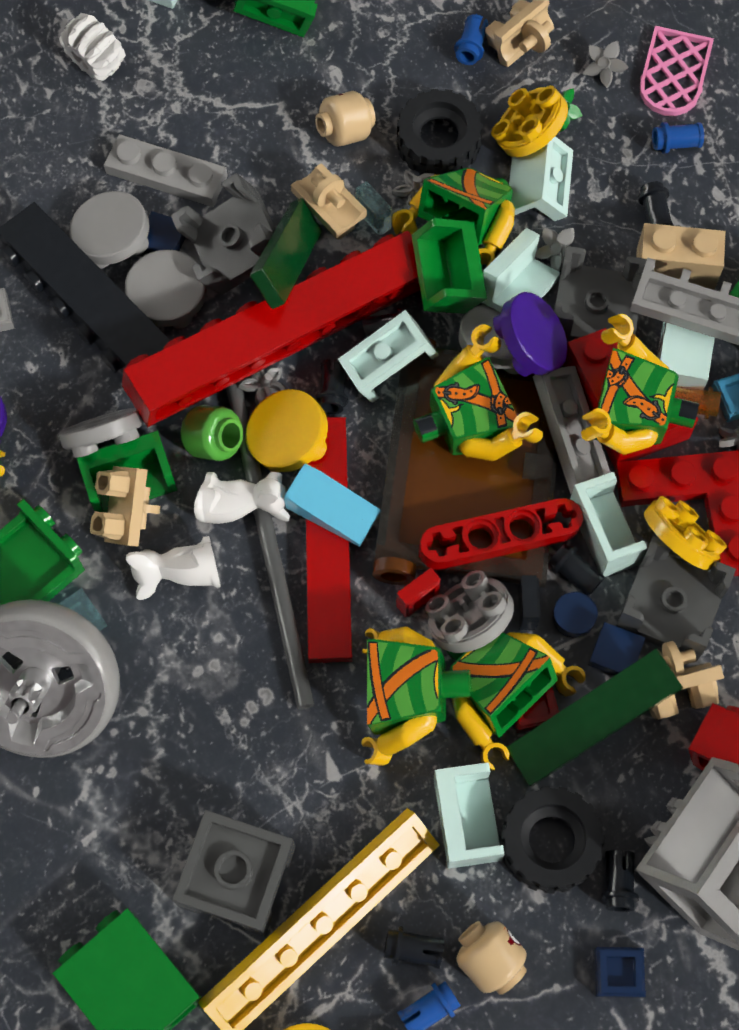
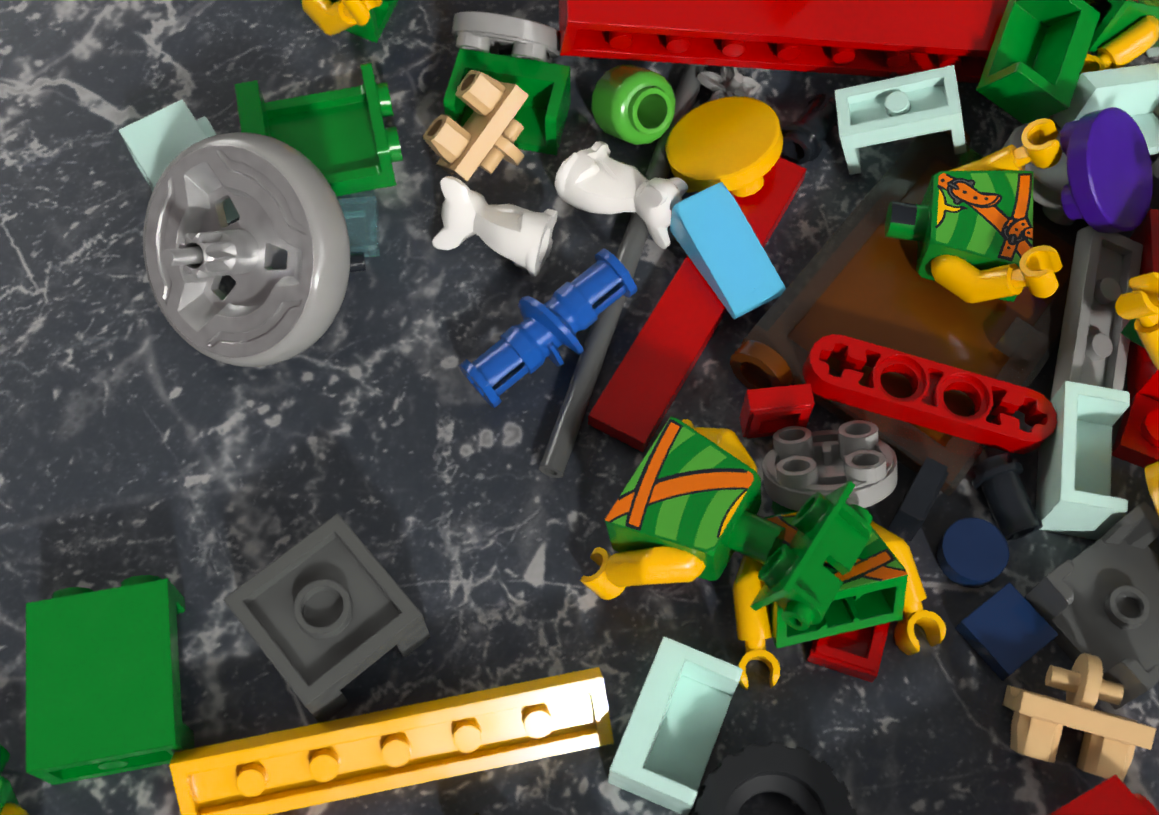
camera: 30 degrees right, 5 degrees down
(251, 617) = (549, 326): none -> blue piece
(490, 695) = (795, 572): none -> green hinge
(594, 717) = (931, 696): dark green tile -> none

